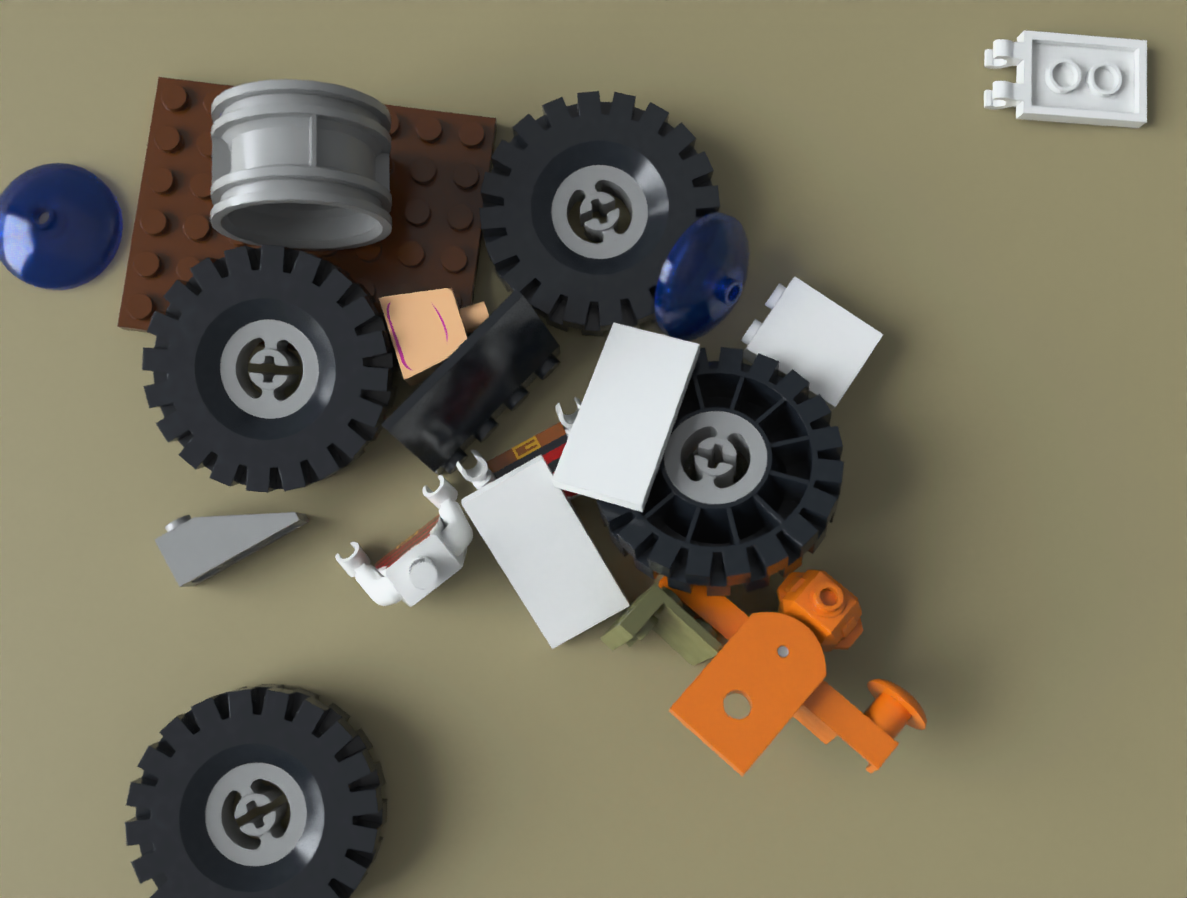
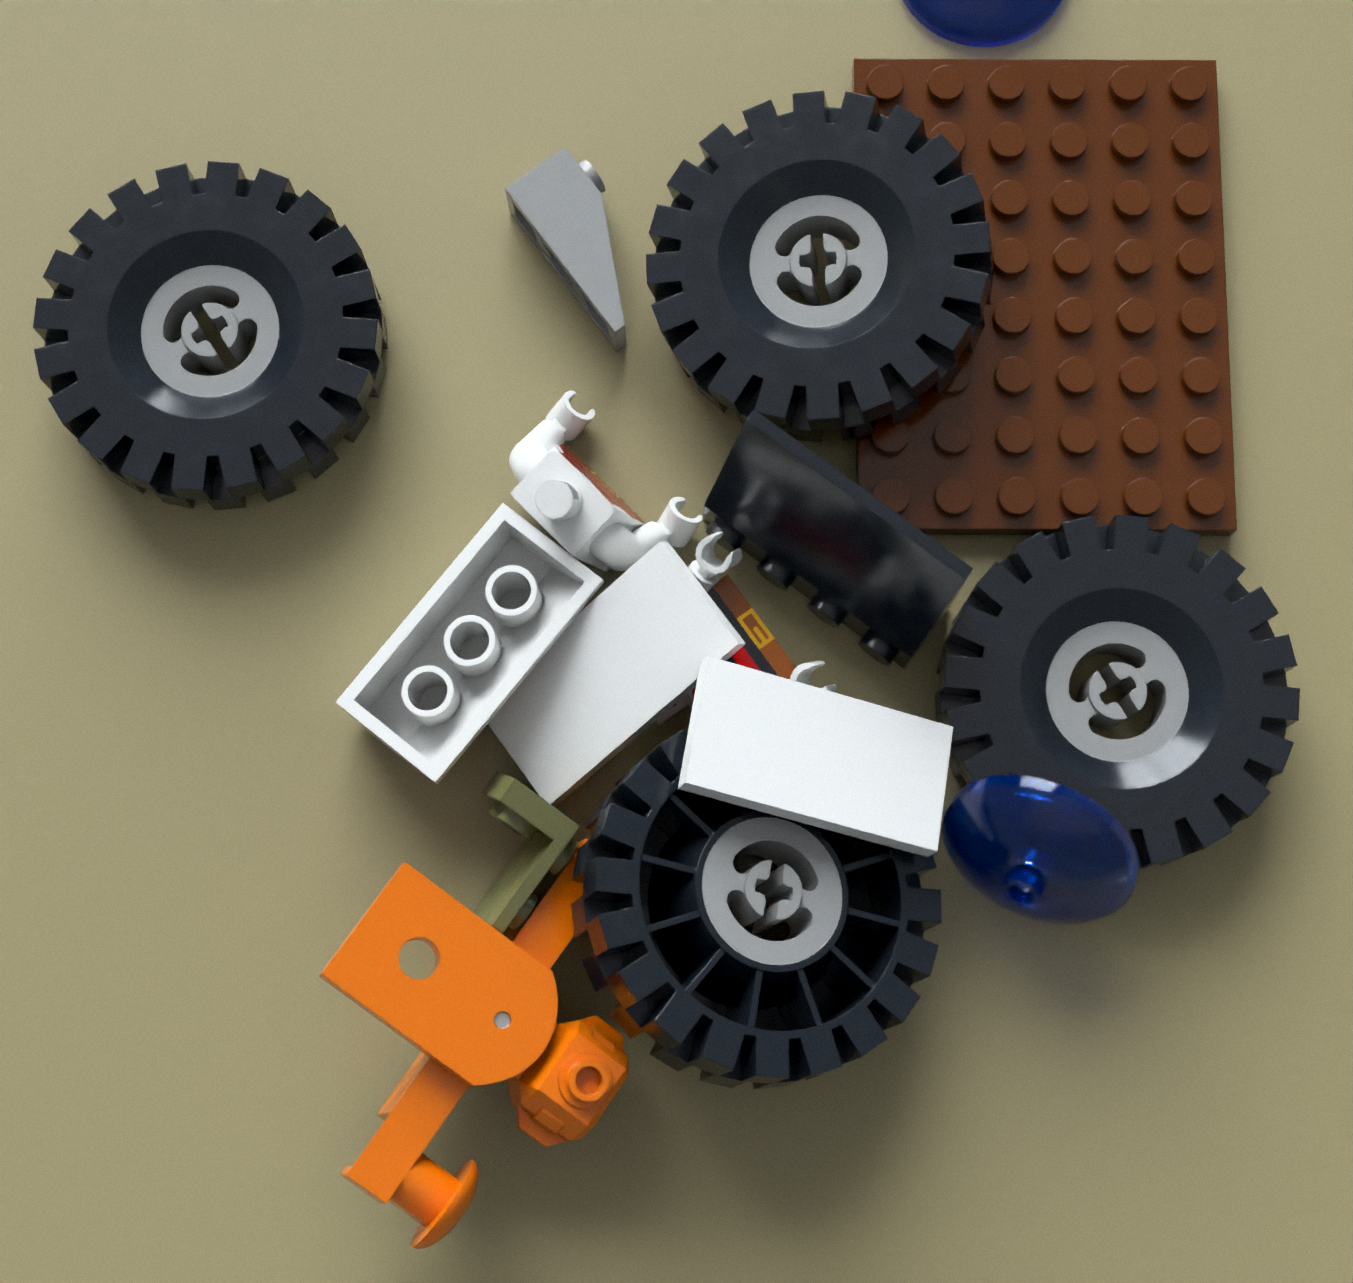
camera: 85 degrees right, 5 degrees down
(300, 165) = (1105, 257): light grey wheel -> none
(428, 329) = (908, 465): light nougat torso -> none
(513, 647) = (469, 643): none -> white slope
(813, 339) = (970, 1031): white brick -> none

